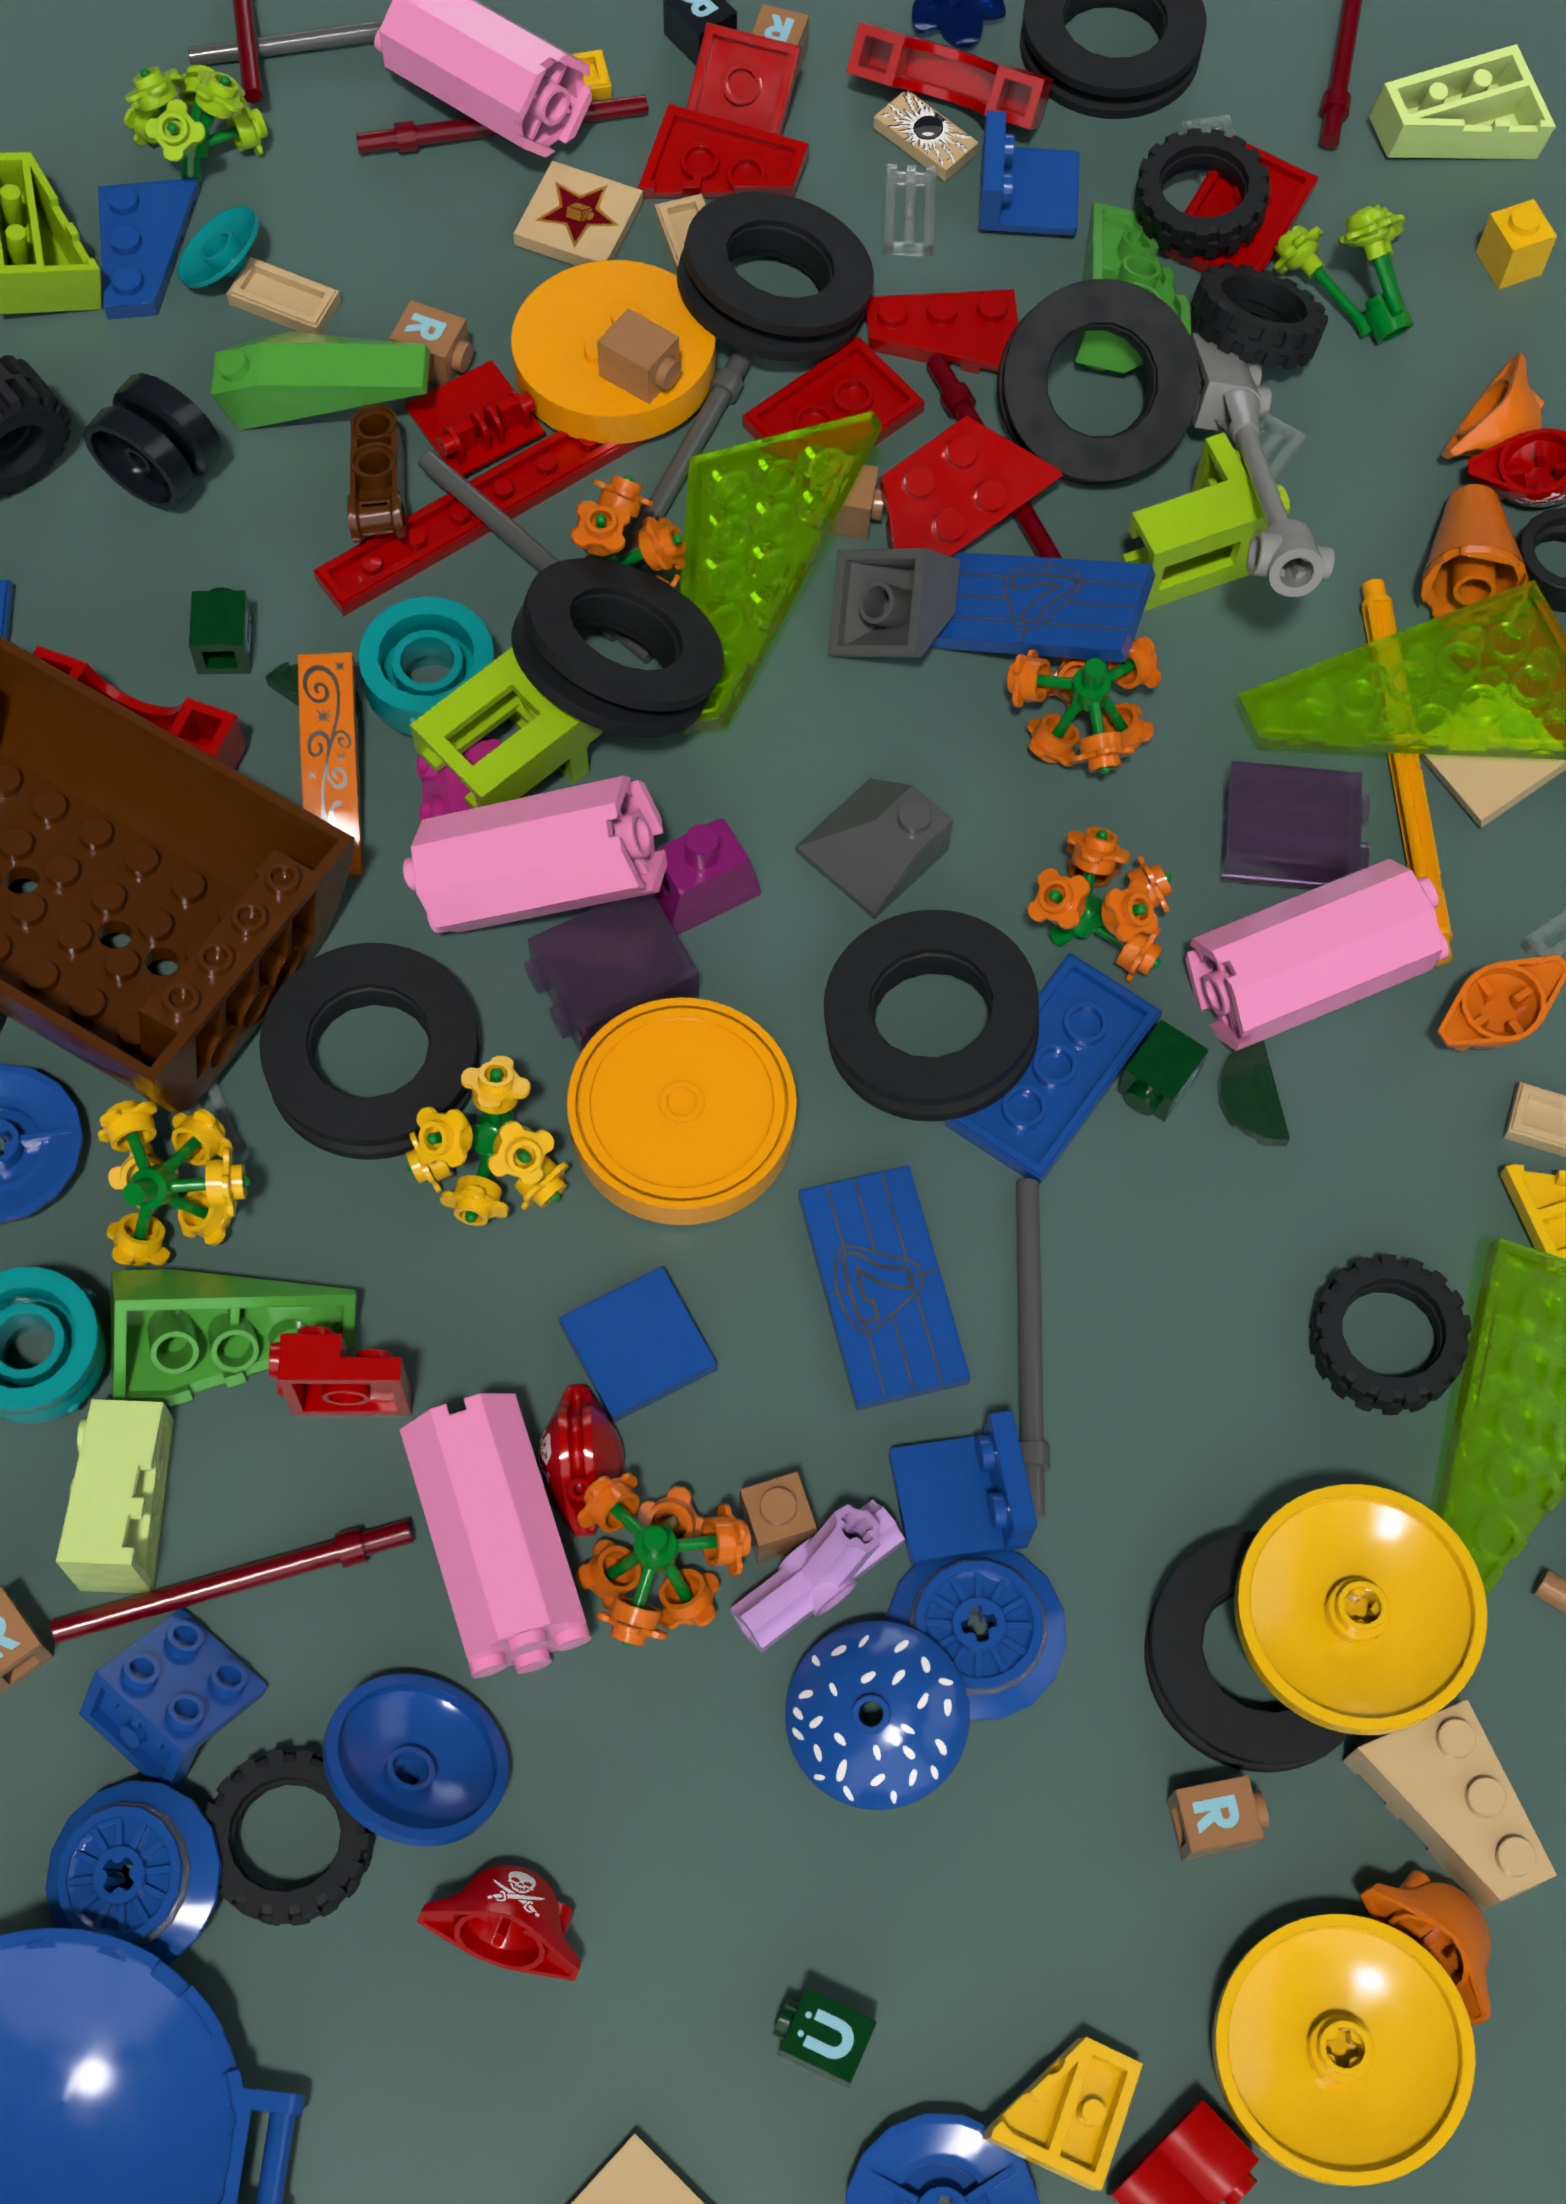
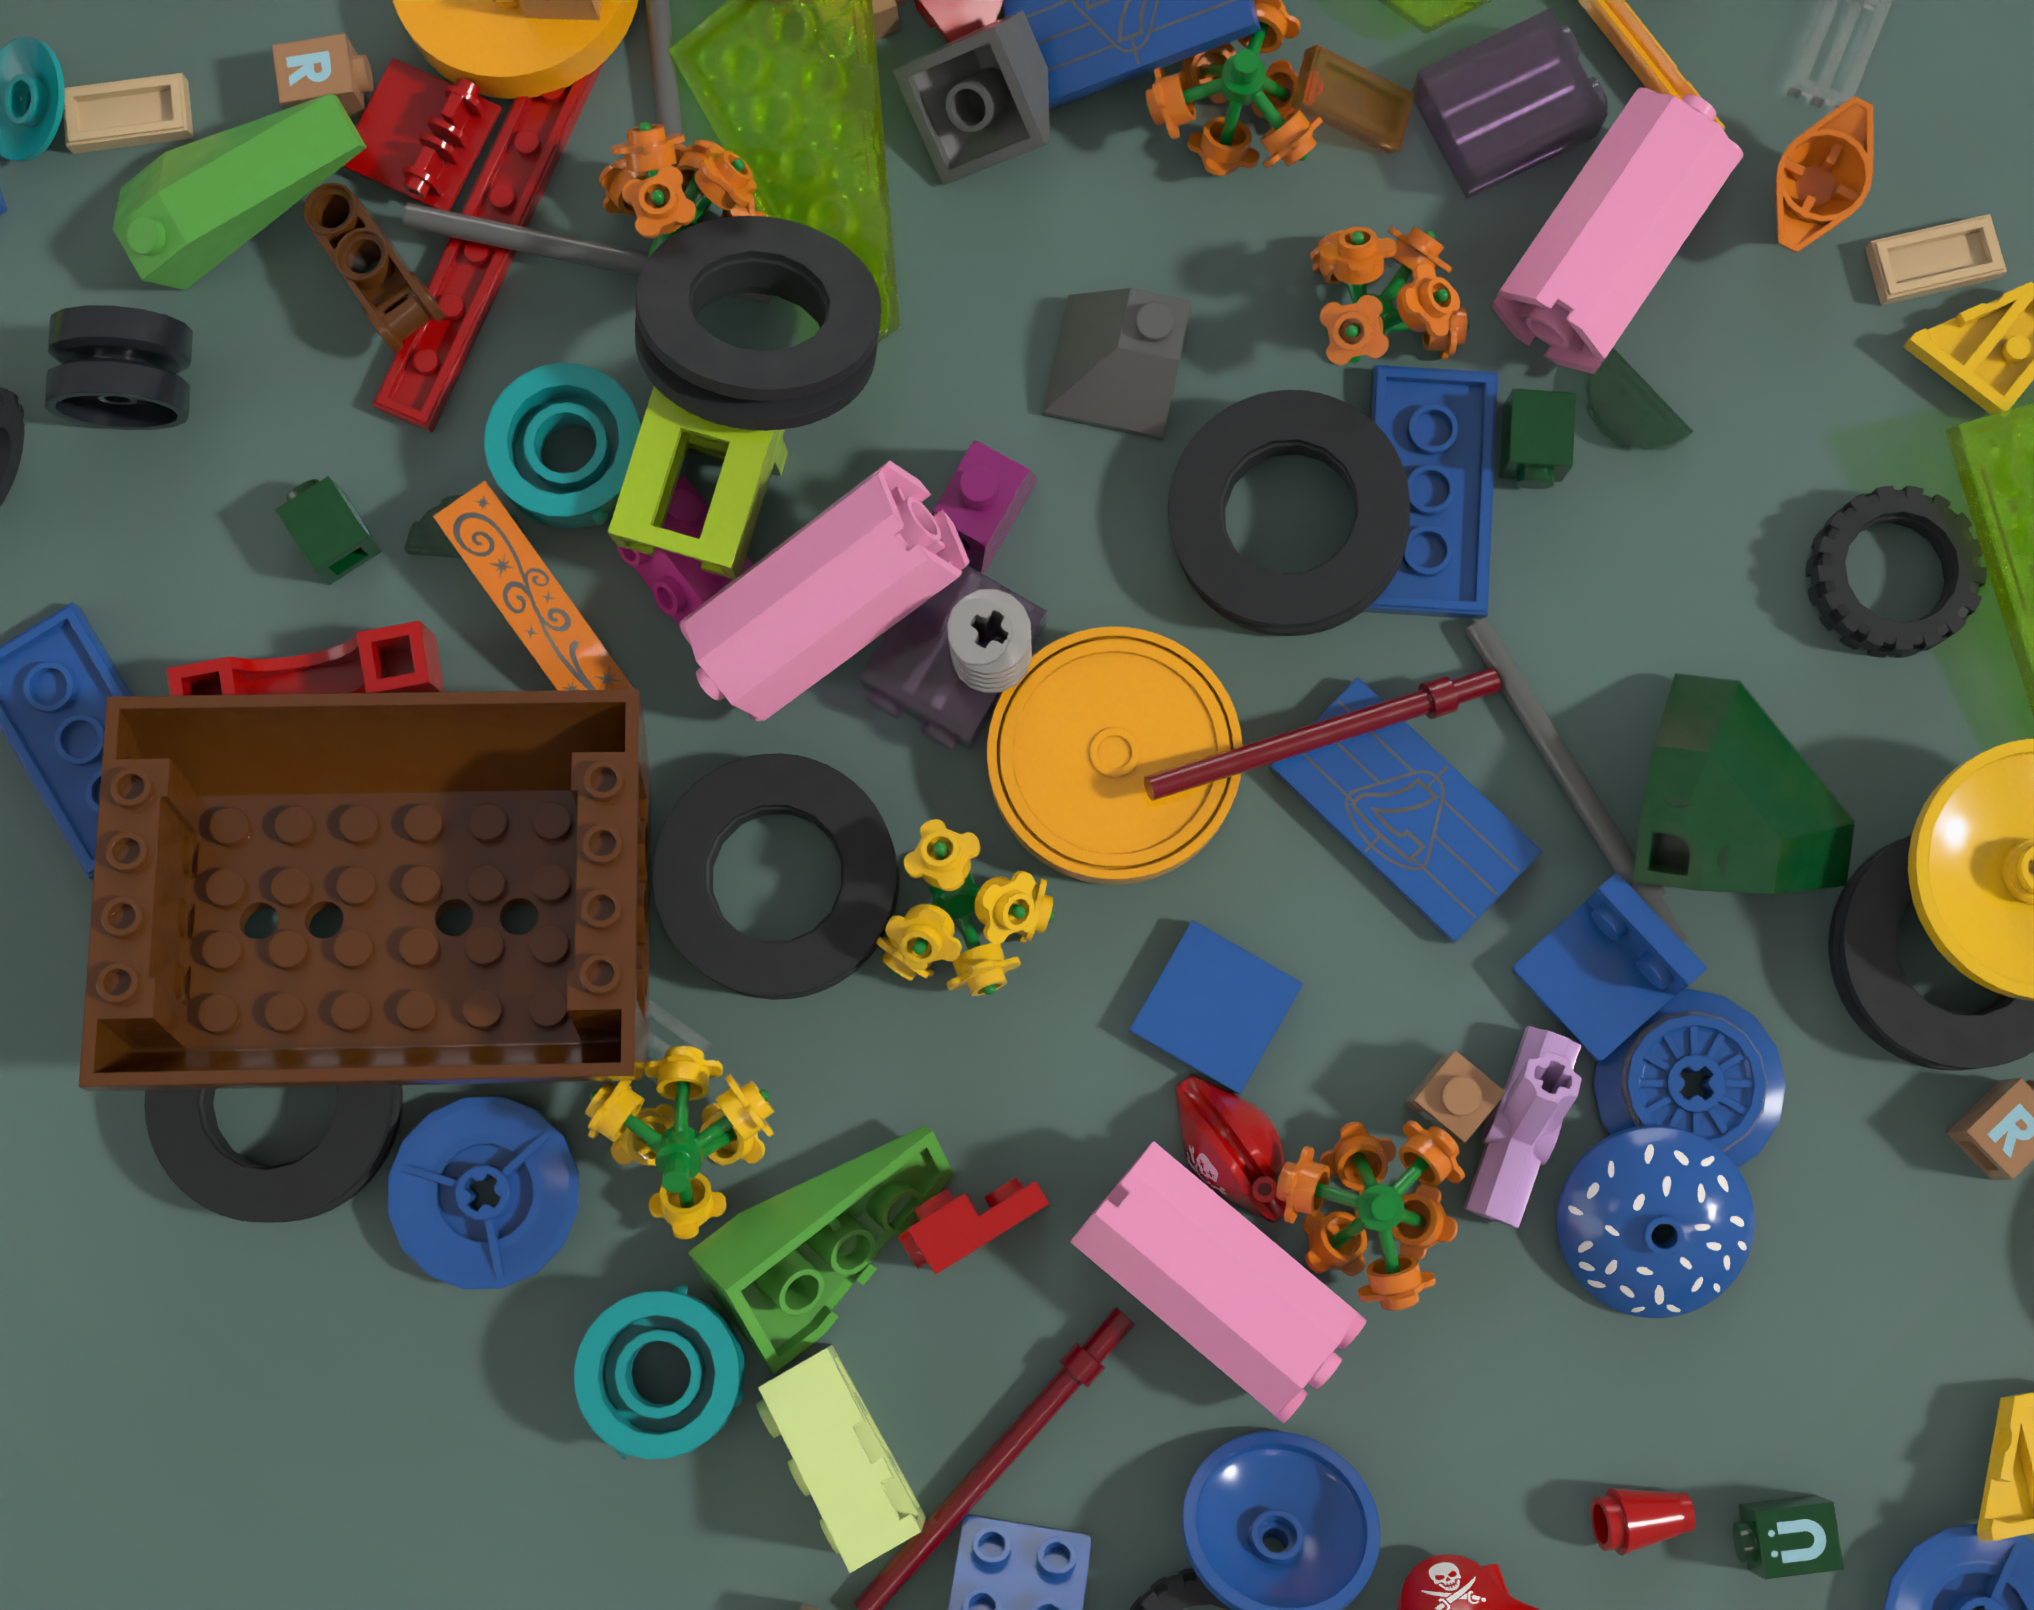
camera: 25 degrees left, 15 degrees up
(634, 953) = (981, 618): none -> light grey piece
(713, 1946) = (1639, 1518): none -> red cone
(958, 1214) = (1432, 699): none -> dark red bar
(1145, 1419) = (1735, 801): none -> dark green brick
(1171, 758) = (1352, 99): none -> clear orange tile

